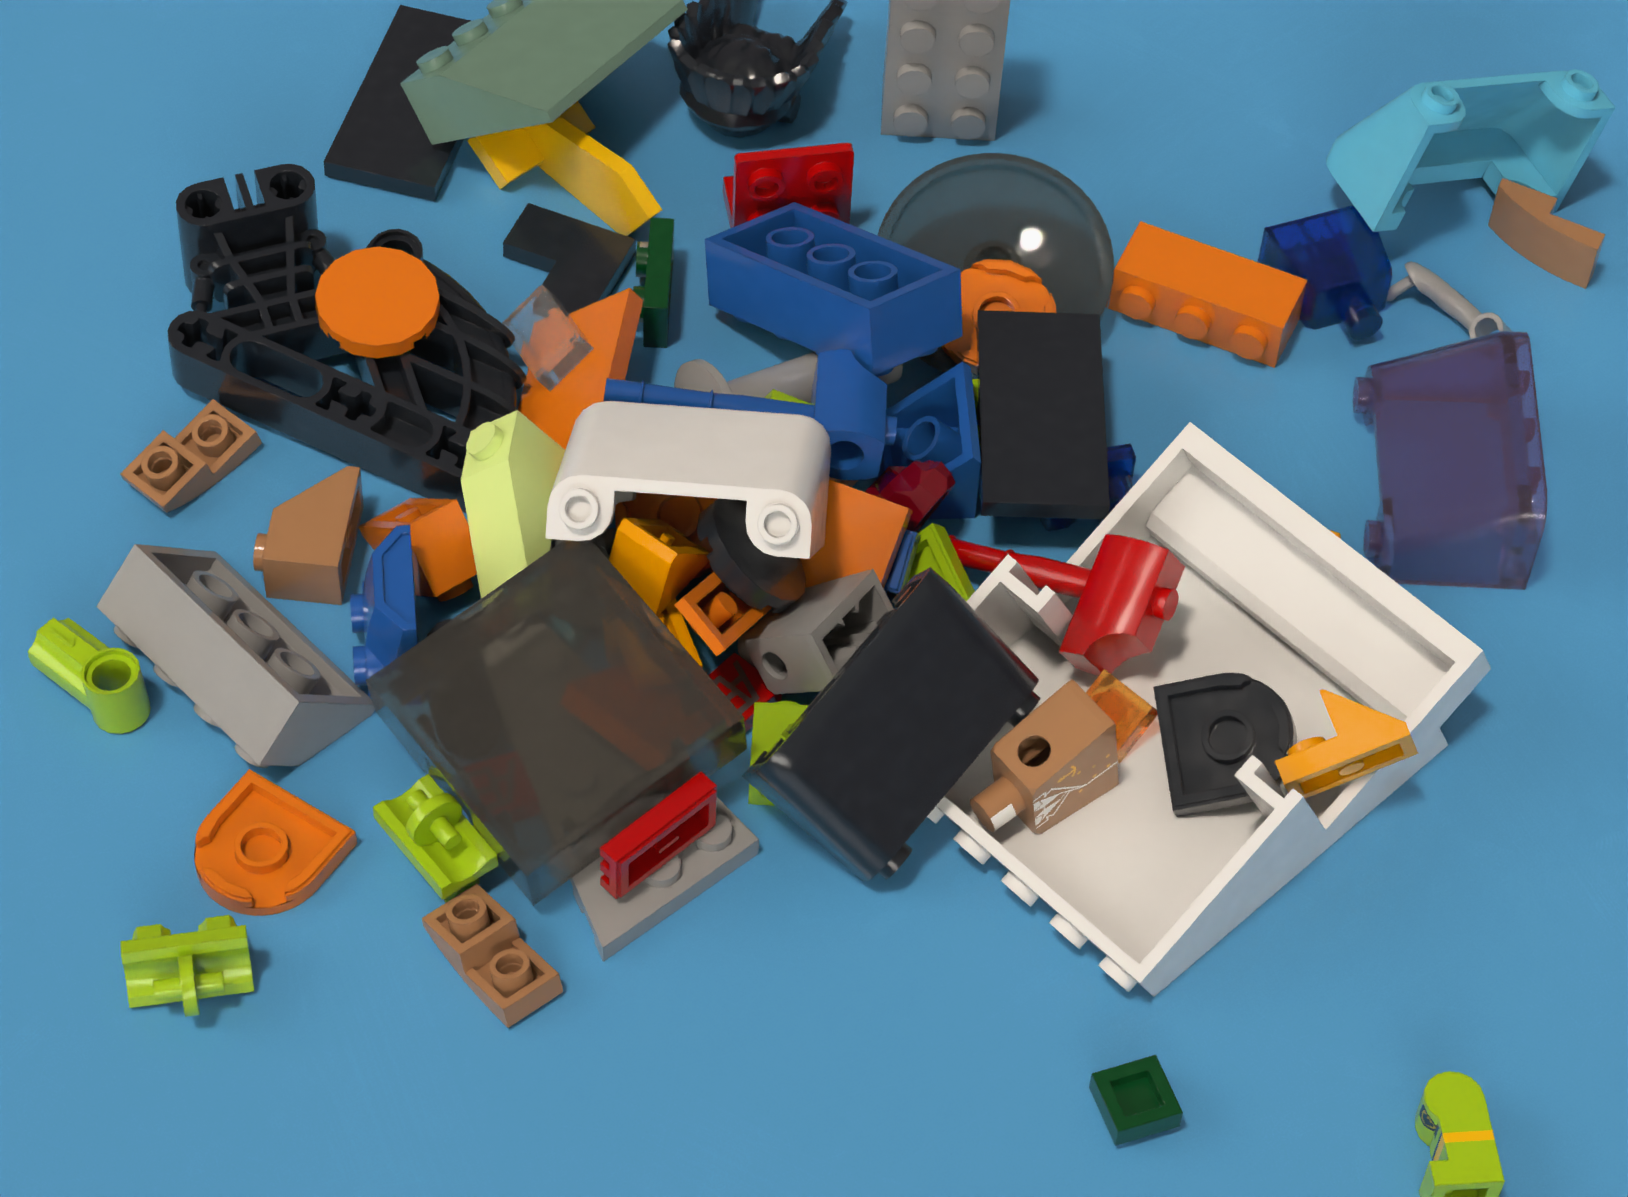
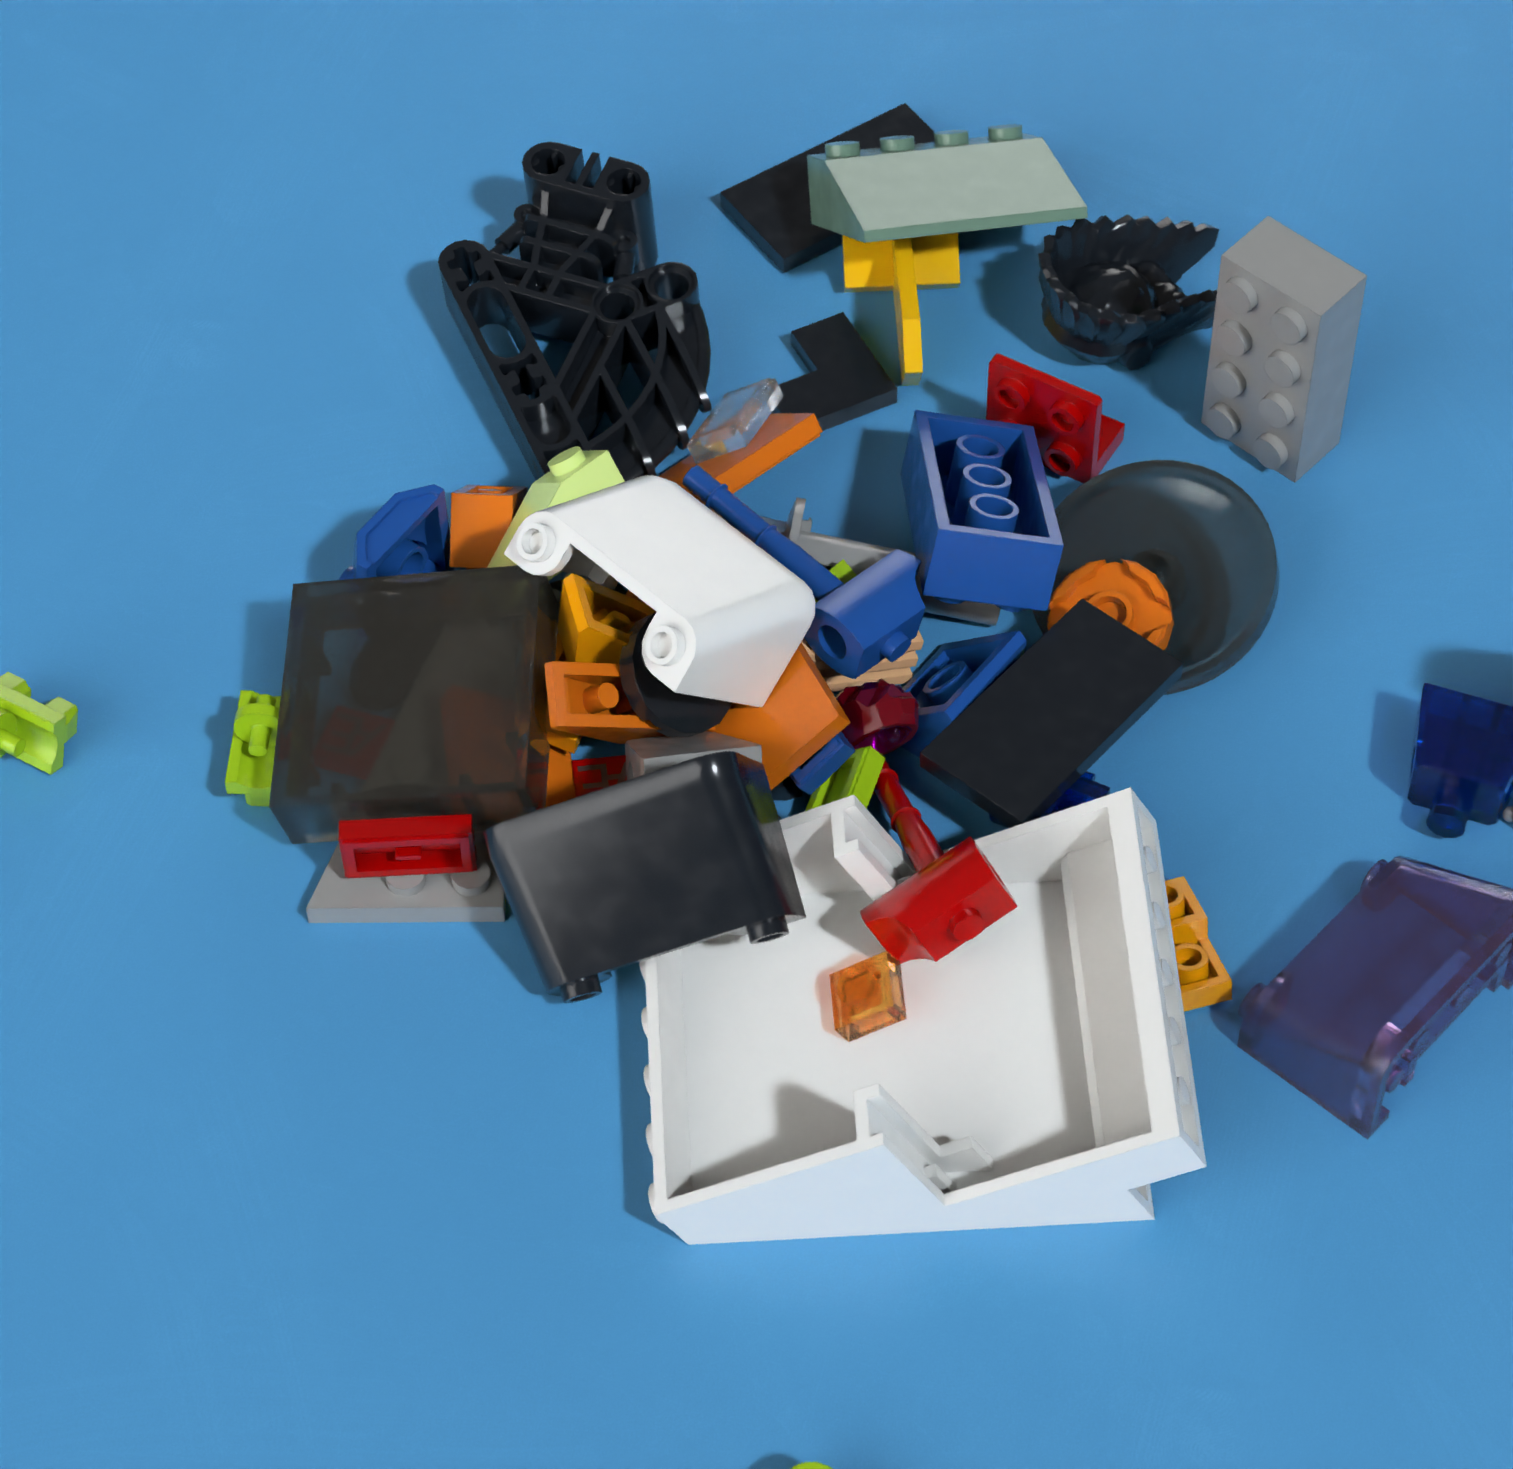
camera: 45 degrees right, 0 degrees up
(96, 675) = (167, 475): lime piece -> none
(200, 456) = (383, 364): medium nougat slope -> none
(232, 654) = (271, 512): light grey slope -> none
(267, 848) = (161, 678): orange tile -> none
(312, 541) = (418, 458): medium nougat slope -> none
(377, 301) = (612, 312): orange tile -> none
(490, 955) = (229, 861): medium nougat slope -> none
(655, 264) = (874, 432): dark green piece -> none
(1051, 763) = (762, 996): medium nougat torso -> none
(1135, 1100) = (573, 1307): dark green plate -> none
(1207, 294) = (1329, 713): orange brick -> none
(1212, 730) = (934, 1066): black tile -> none
(1362, 745) = (998, 1144): light orange slope -> none

